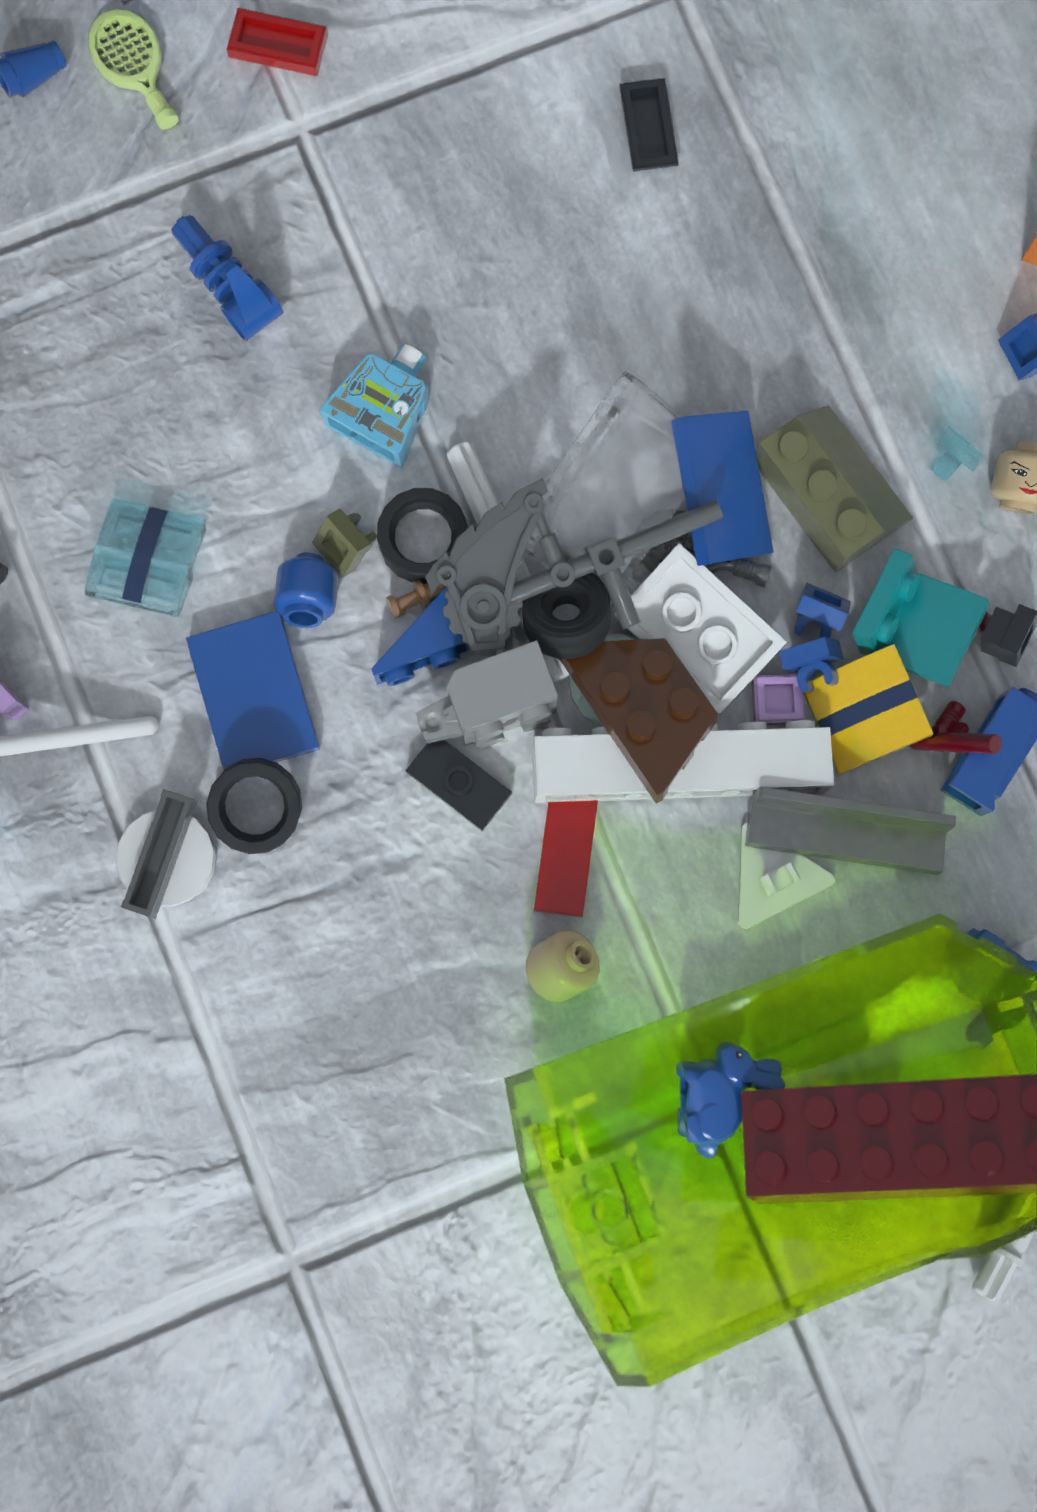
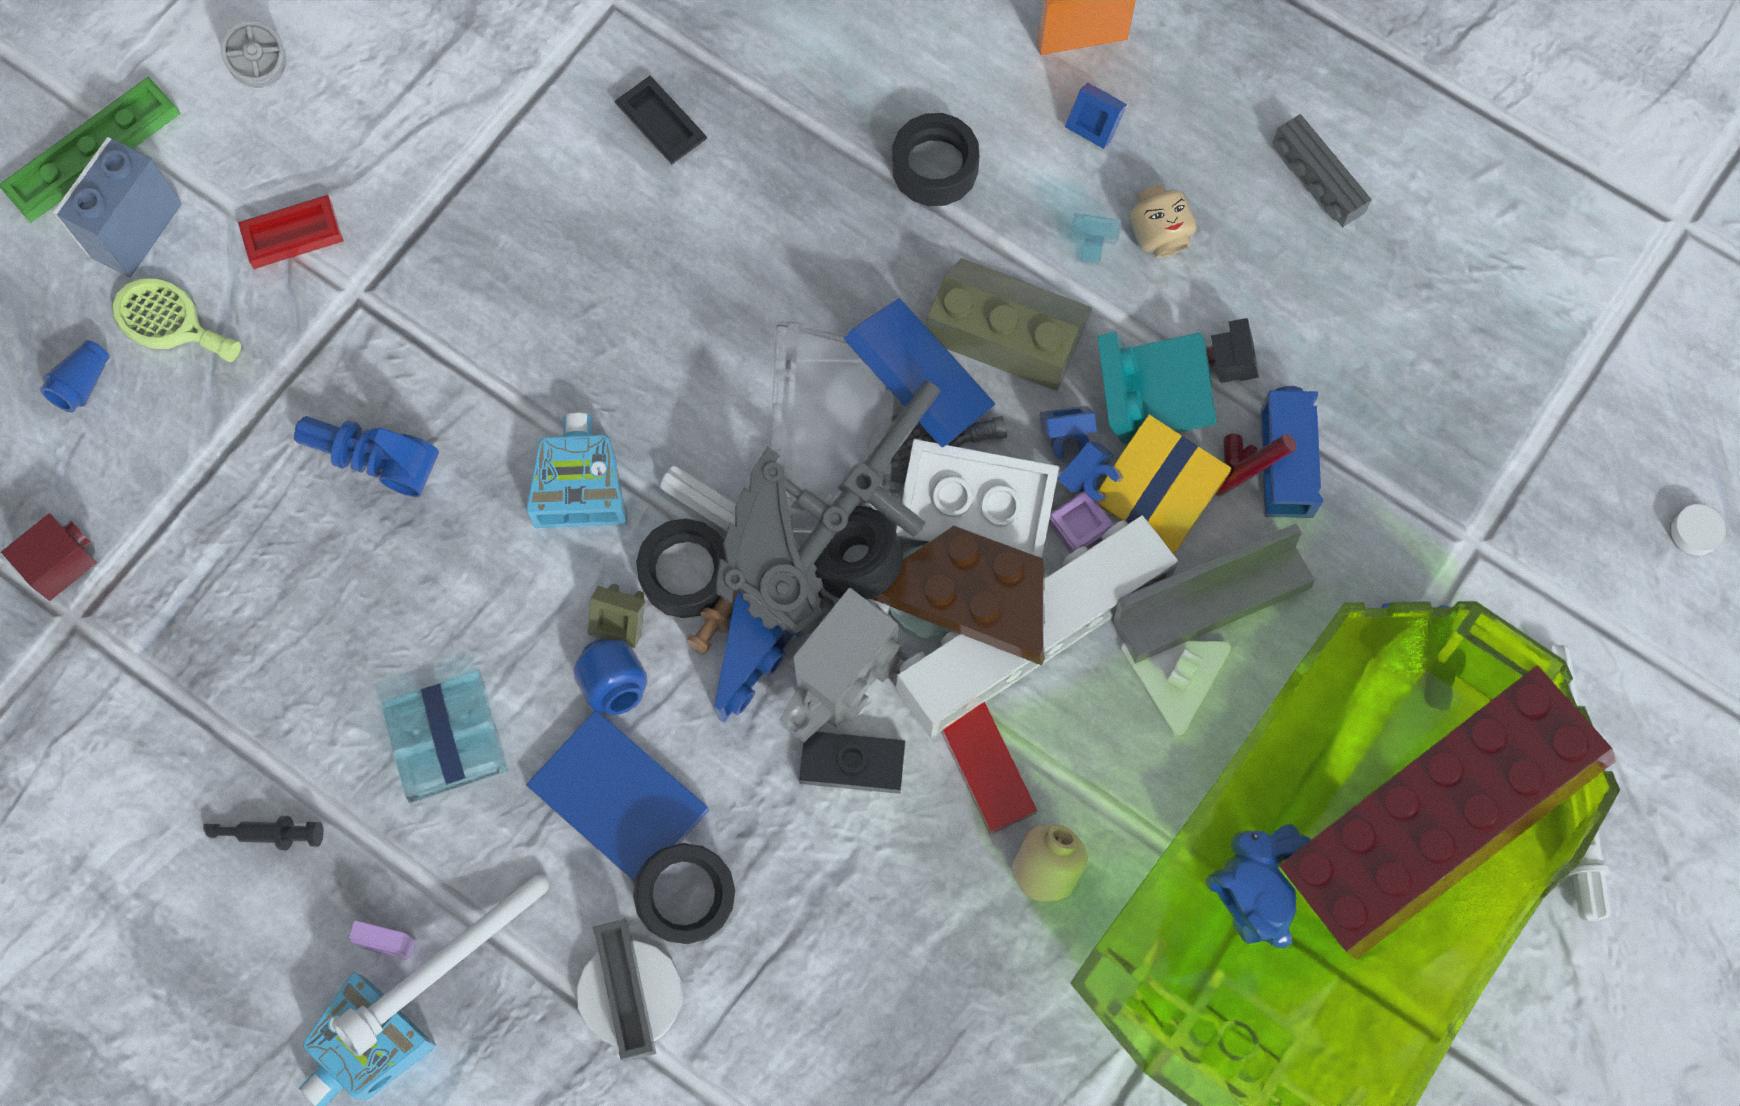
camera: 30 degrees left, 10 degrees down
(881, 273) = (935, 128): none -> black tyre

